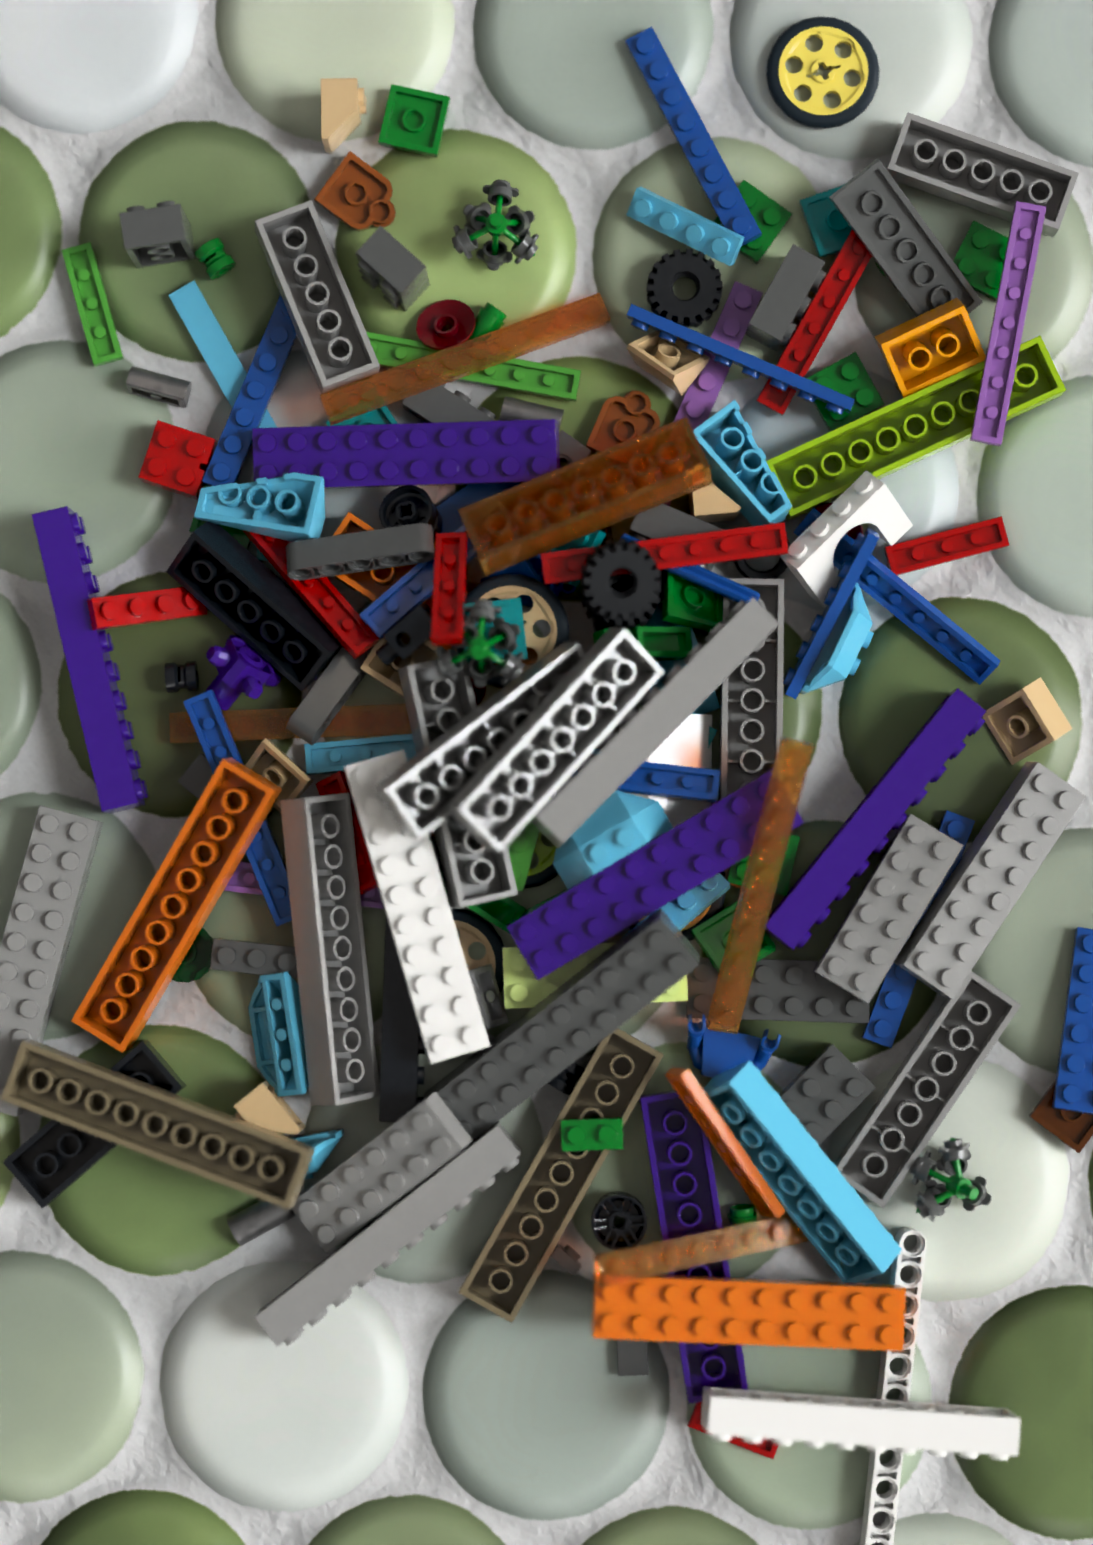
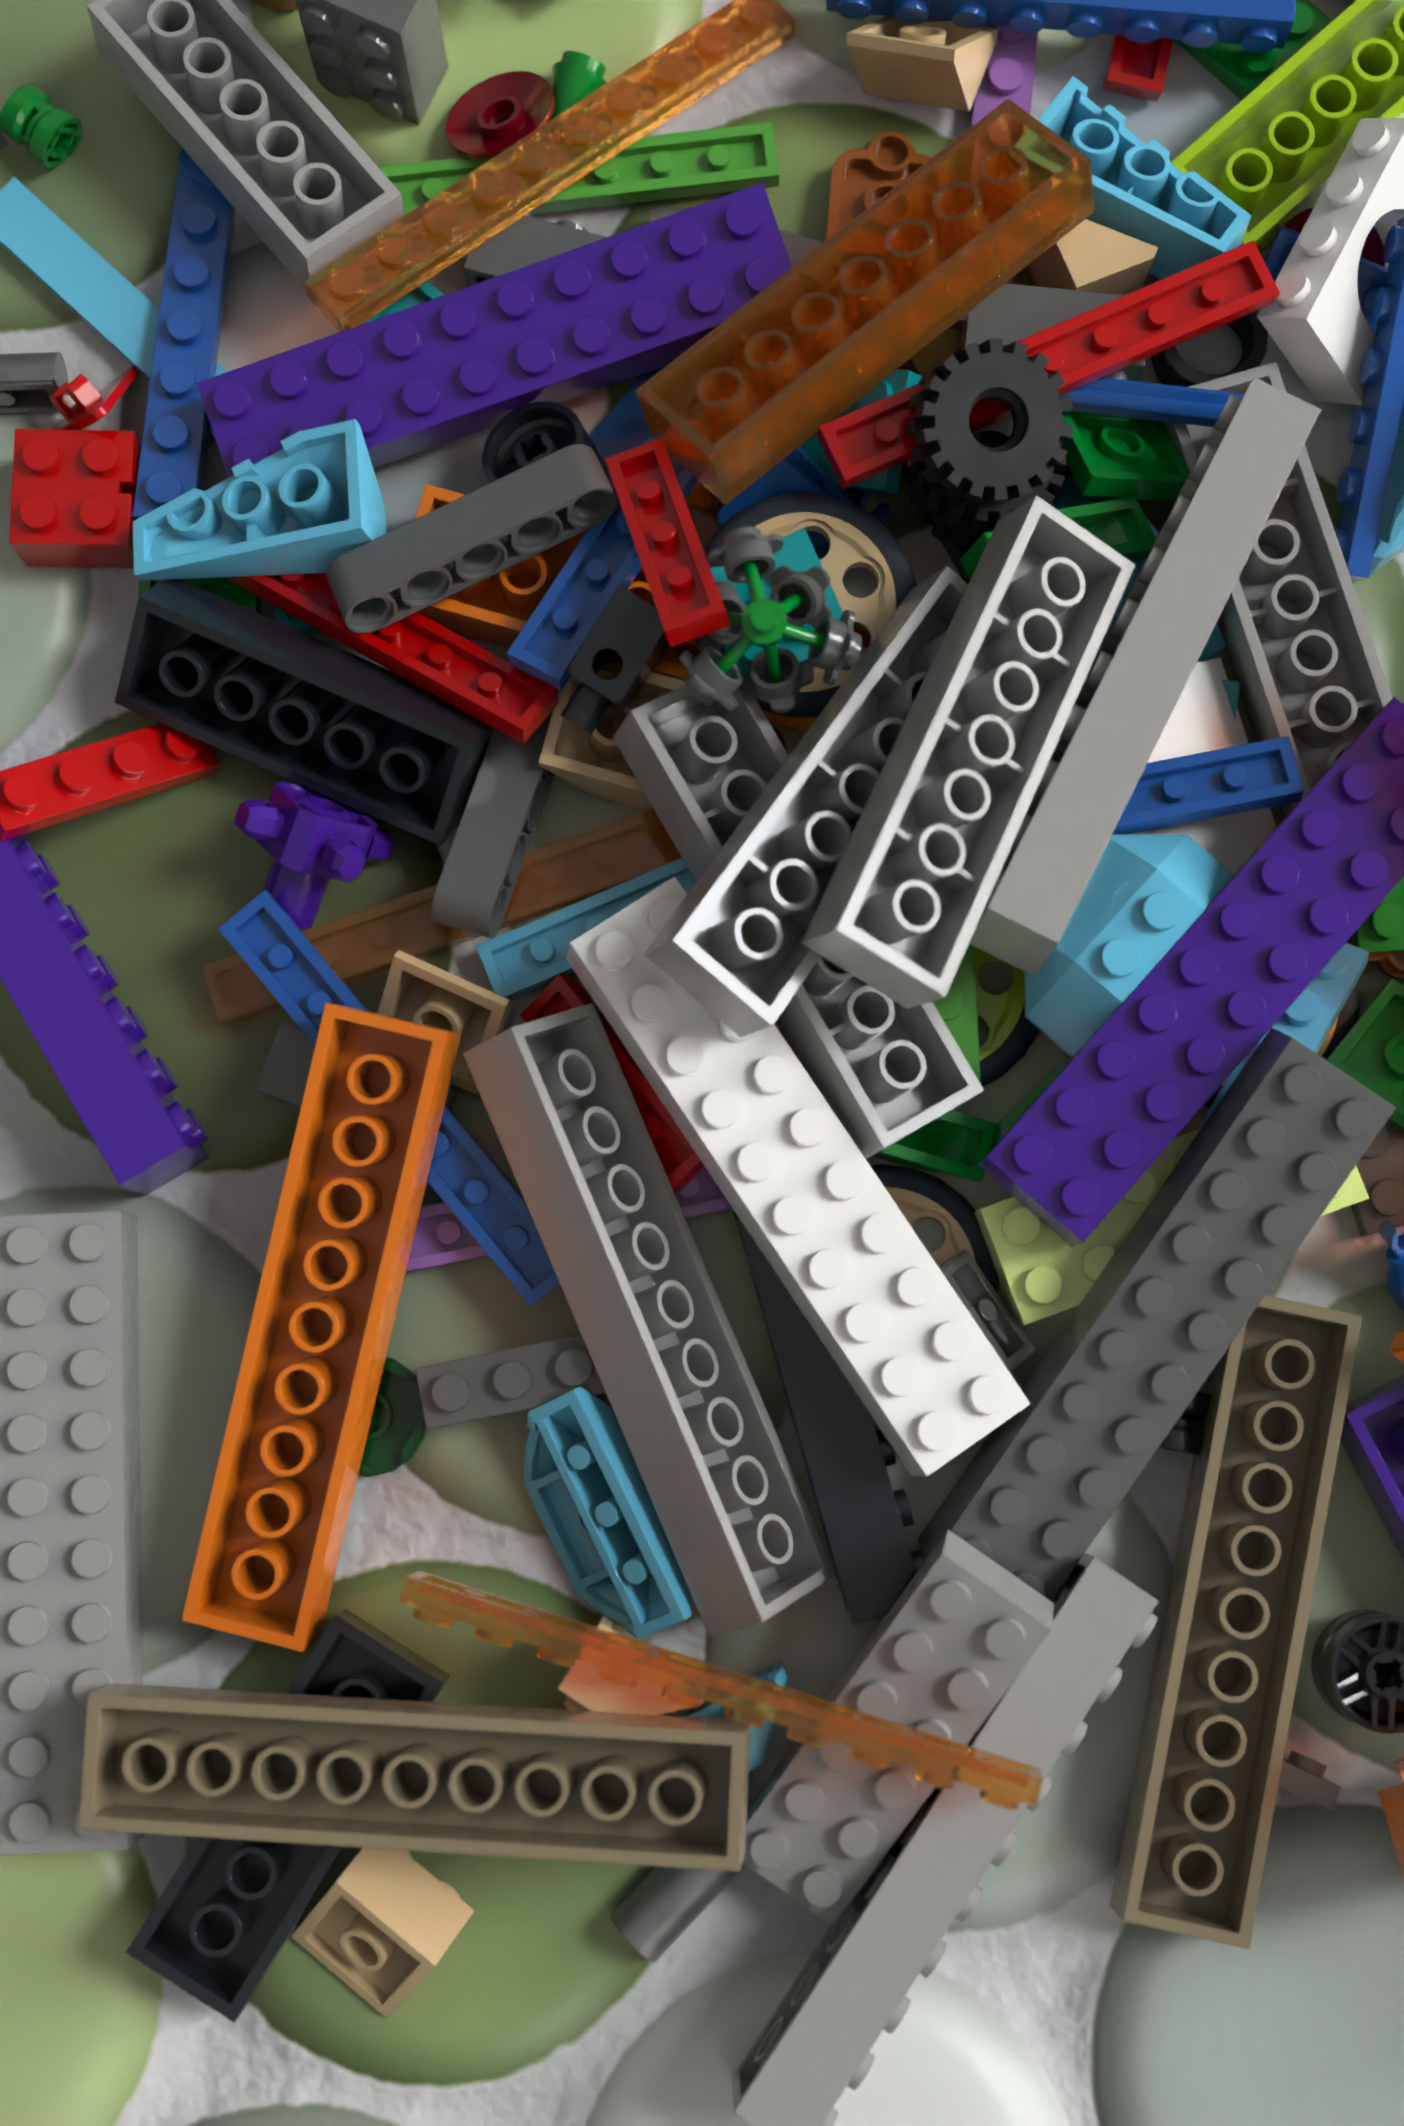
camera: 25 degrees left, 5 degrees down
(121, 1188) = (383, 1925): none -> tan slope
(188, 674) = (216, 886): black wheel -> none
(196, 416) = (82, 403): none -> red piece
(316, 1136) = (745, 1697): none -> clear orange plate
(592, 1134) = (1280, 1516): green plate -> none

